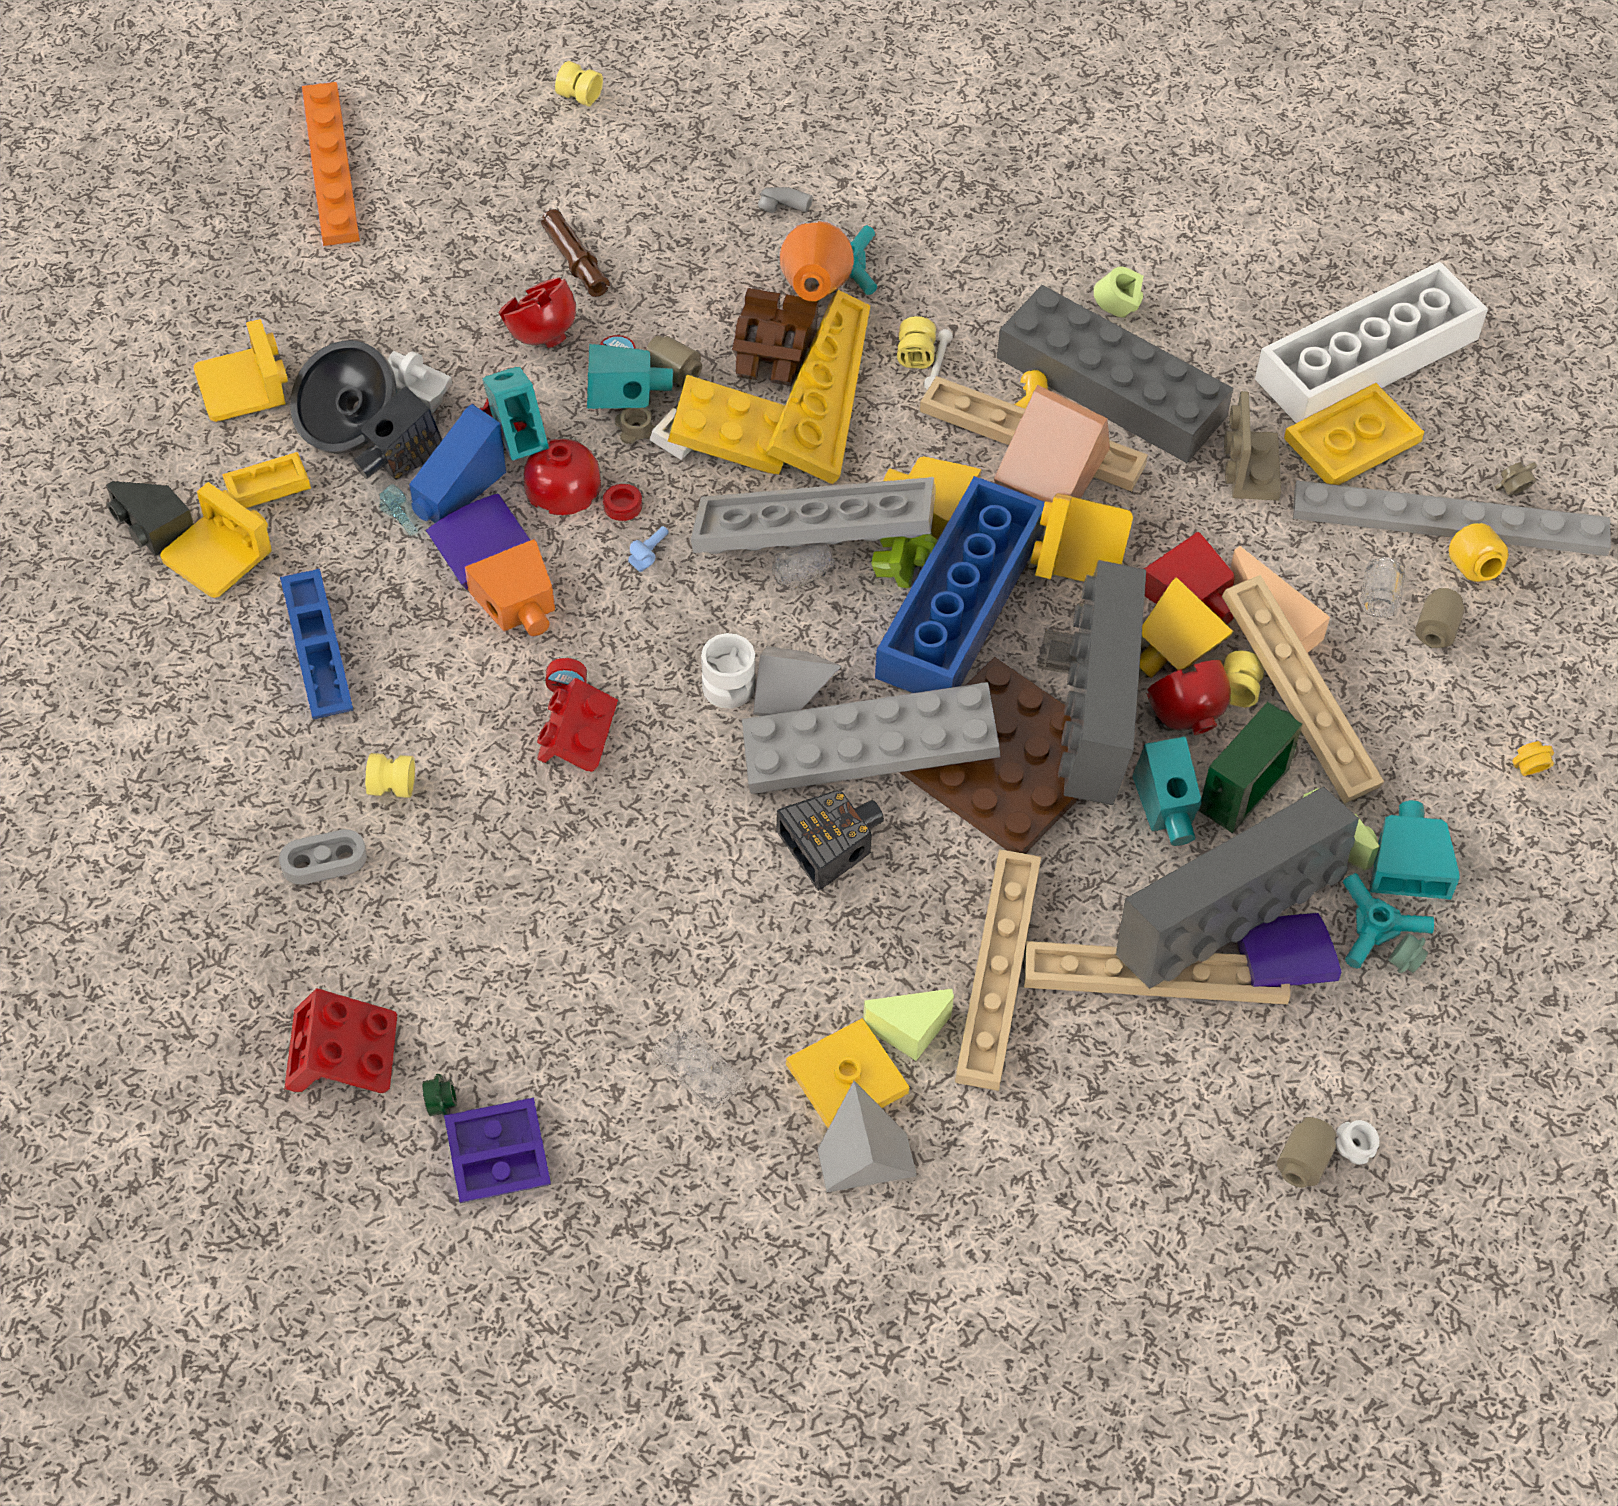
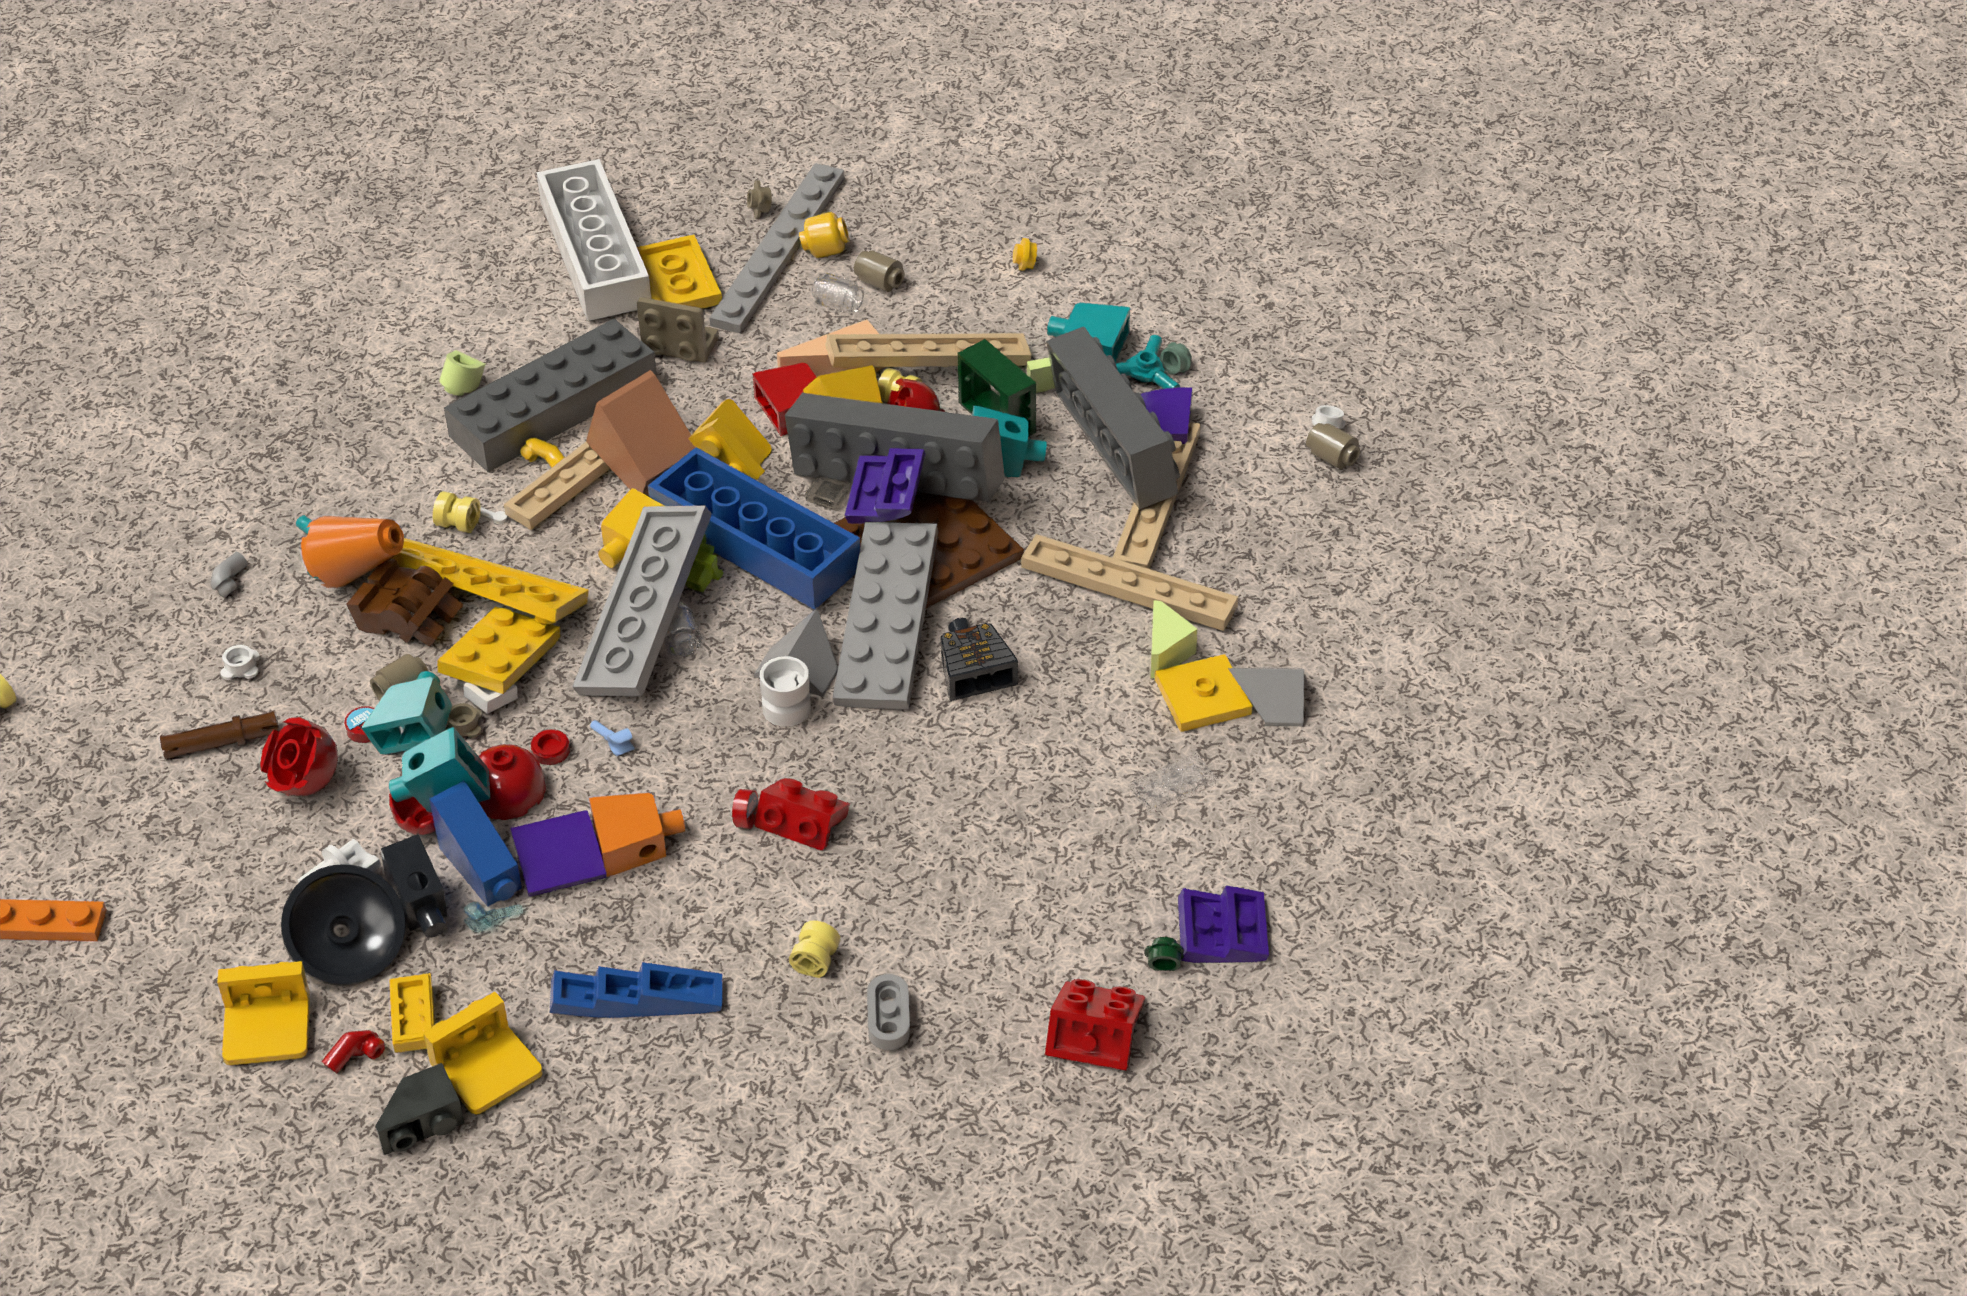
camera: 75 degrees left, 10 degrees down
(228, 456) = (353, 1044): none -> red arm
(670, 240) = (239, 662): none -> white plate
(1029, 679) = (884, 486): none -> dark purple slope

